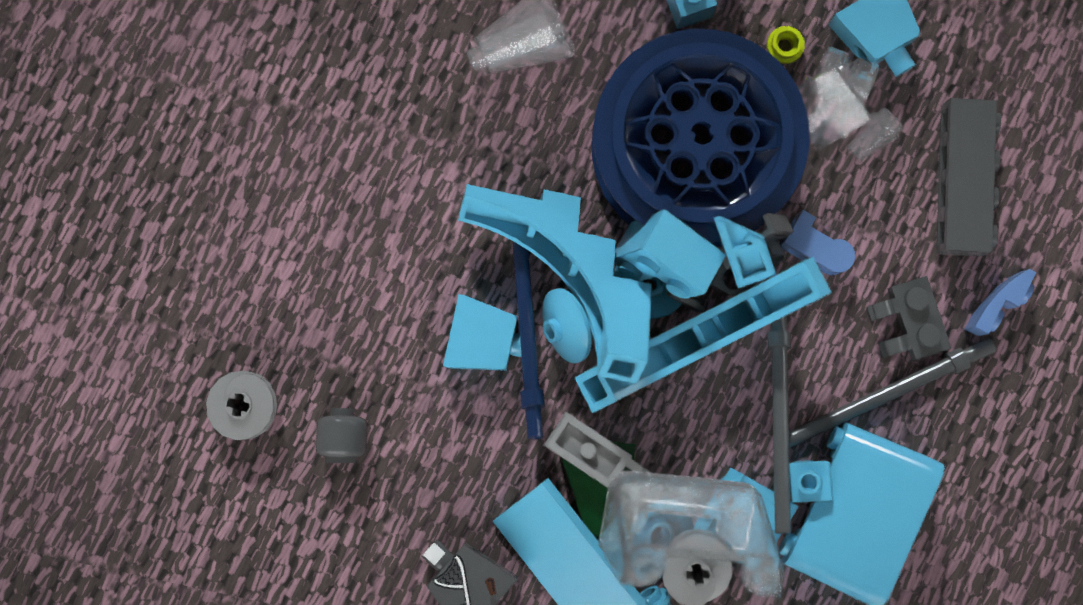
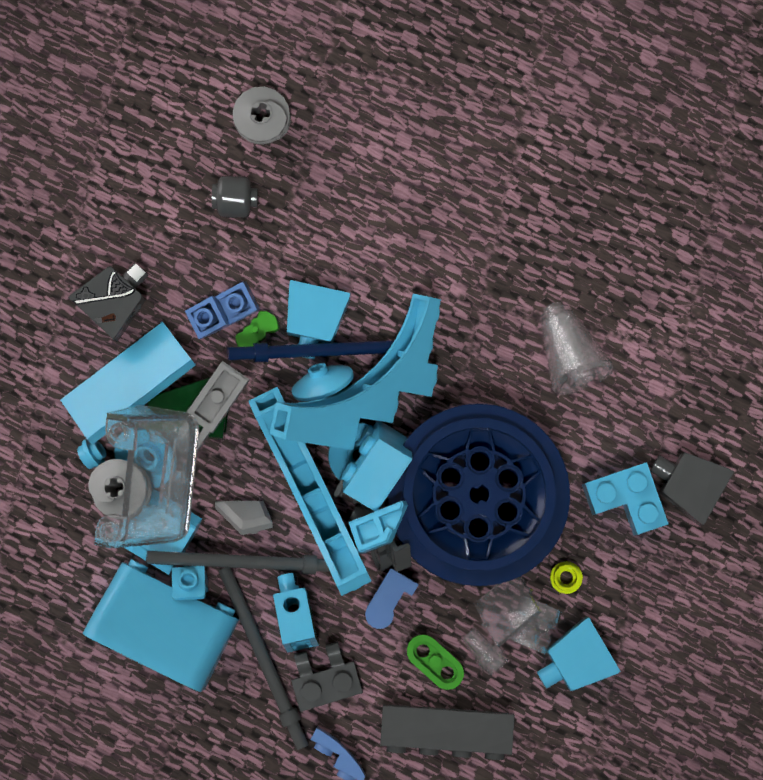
camera: 90 degrees right, 0 degrees up
(478, 449) = (222, 310): none -> medium blue slope
(494, 399) = (257, 330): none -> bright green piece
(724, 416) = (245, 515): none -> light grey piece
(859, 349) = (295, 627): none -> medium azure torso
(887, 193) = (435, 662): none -> bright green plate

